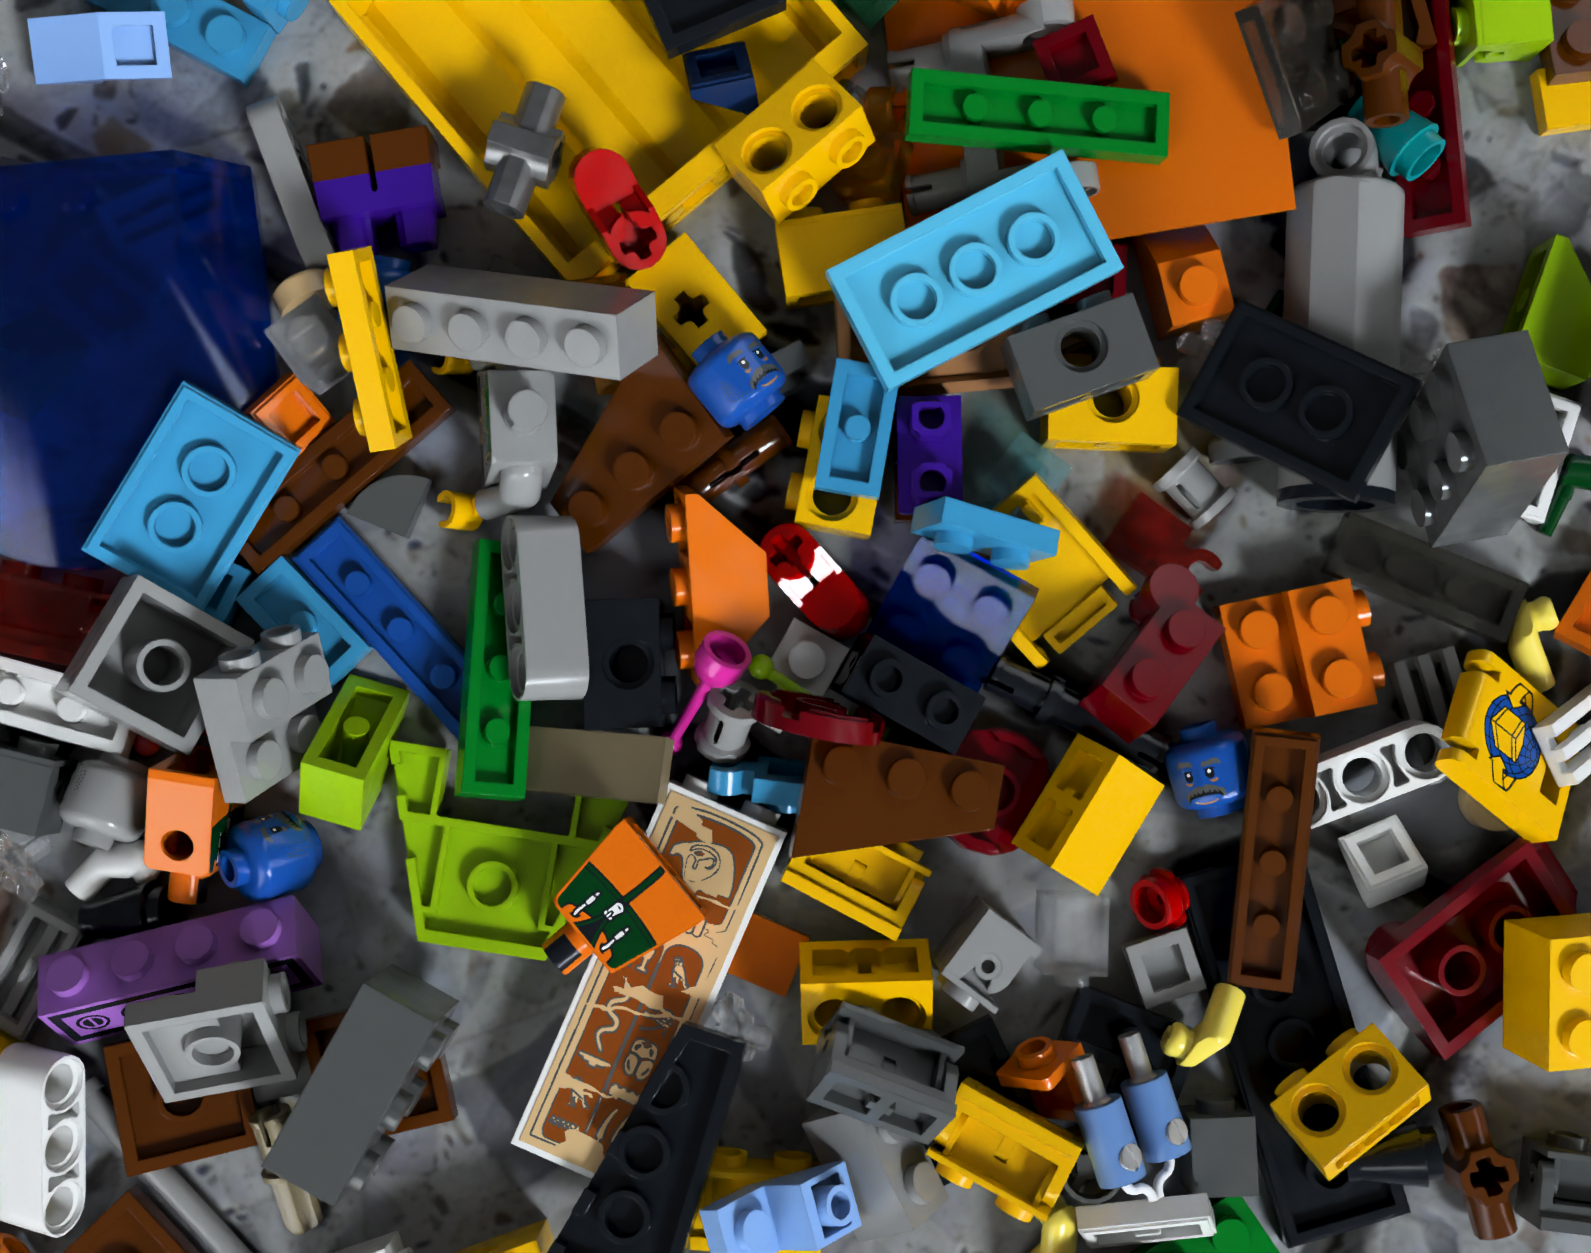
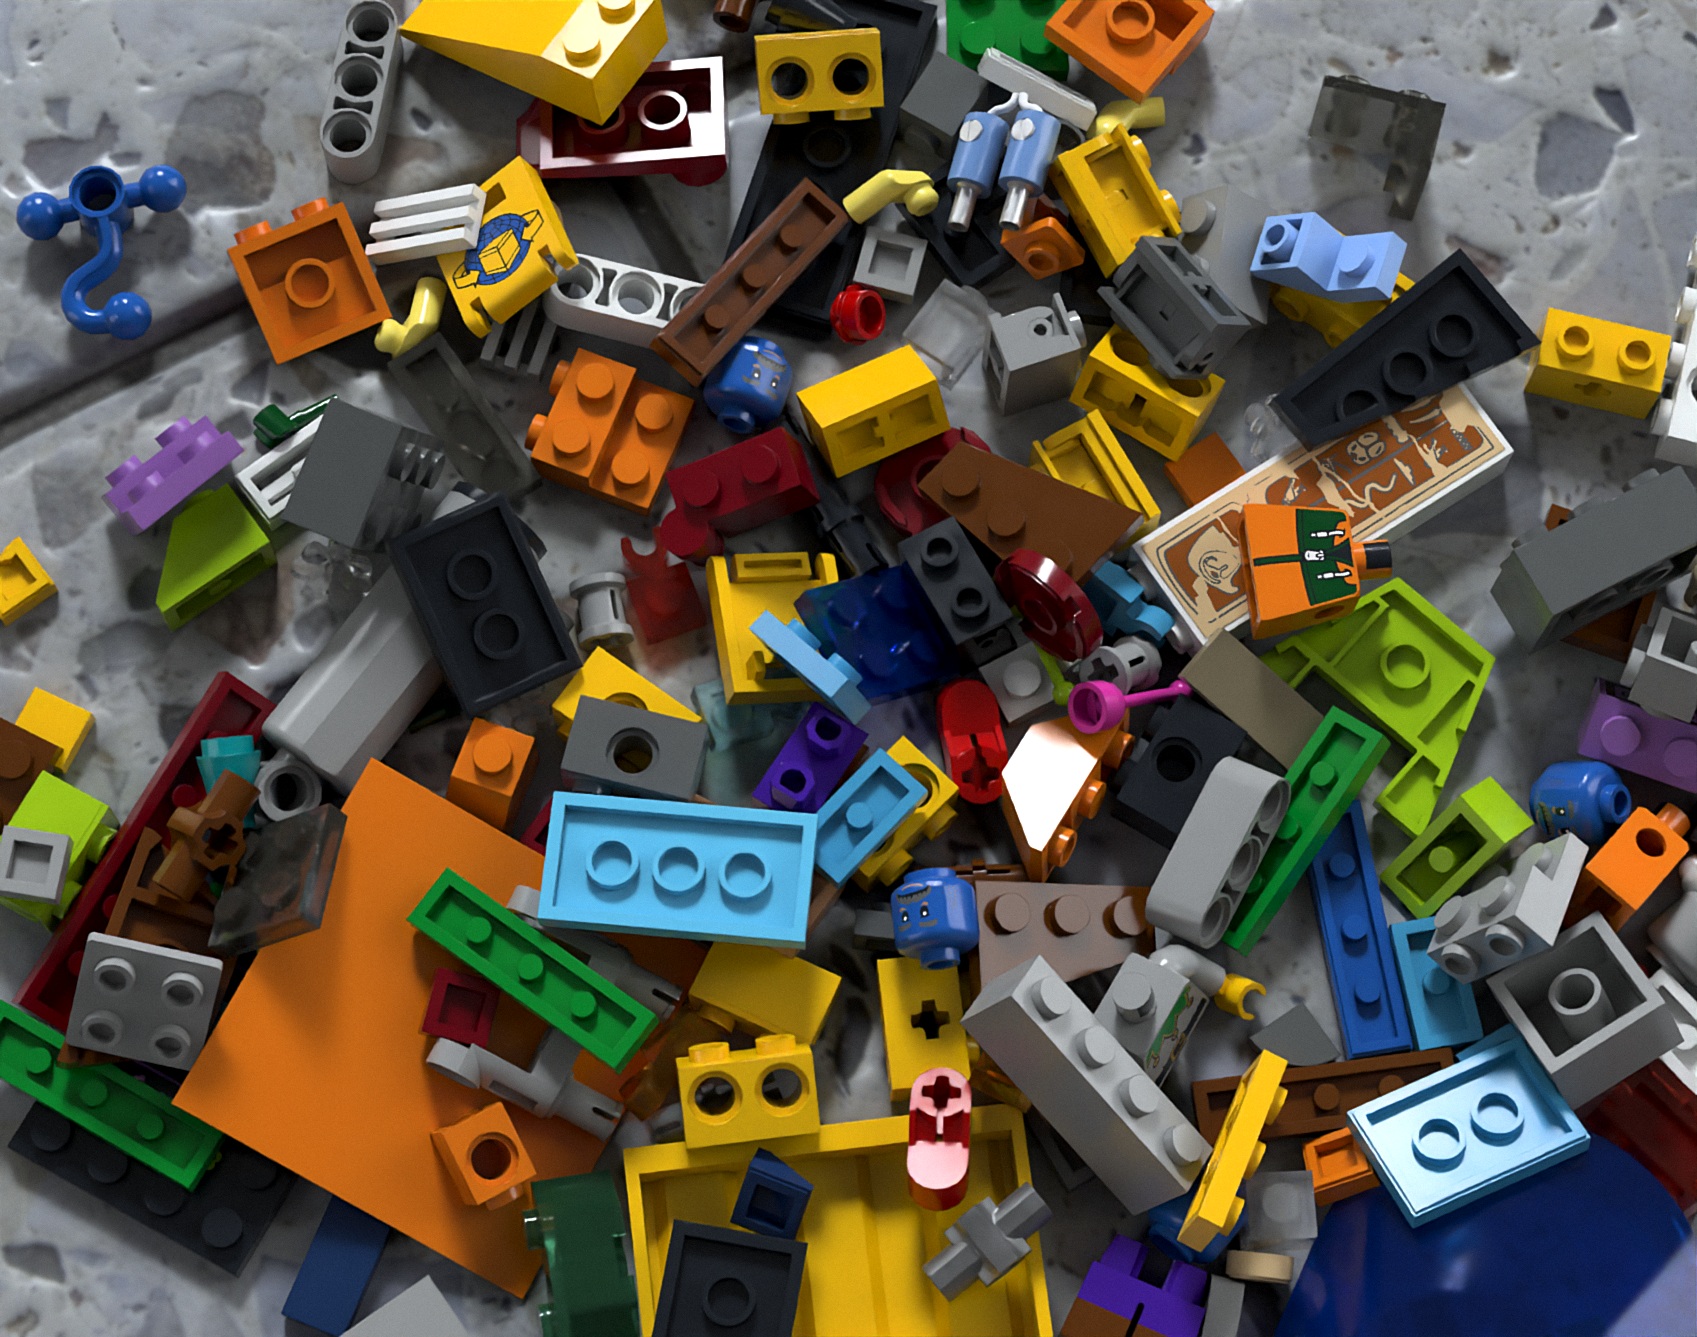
camera: 150 degrees left, 15 degrees down
(1383, 861) = (655, 237): white slope -> none

